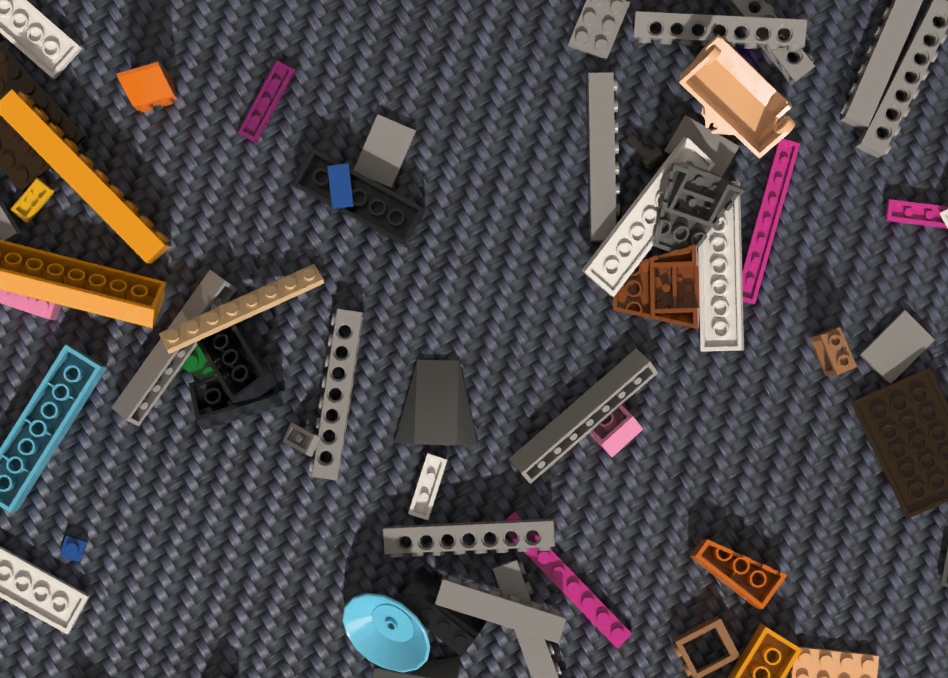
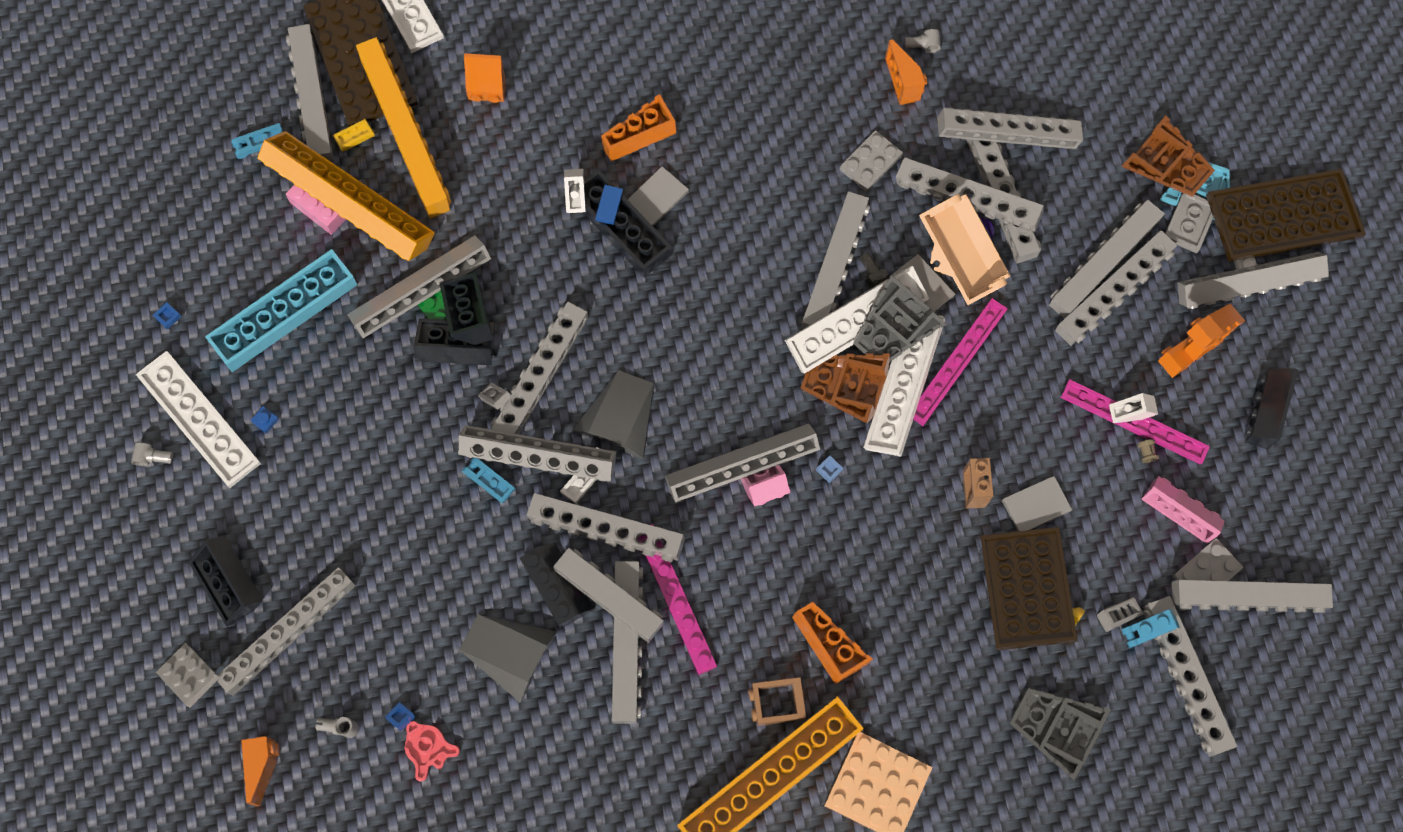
camera: 20 degrees right, 15 degrees down
(241, 308) = (488, 271): tan plate -> none
(266, 101) = (575, 127): magenta tile -> none
(297, 184) = (574, 190): none -> white slope
(330, 528) = (489, 480): none -> dark azure plate
(338, 81) = (639, 130): none -> orange wedge
(369, 486) = (537, 453): none -> light grey brick
(386, 632) = (501, 578): medium azure dish -> none
(674, 387) = (829, 469): none -> medium blue plate

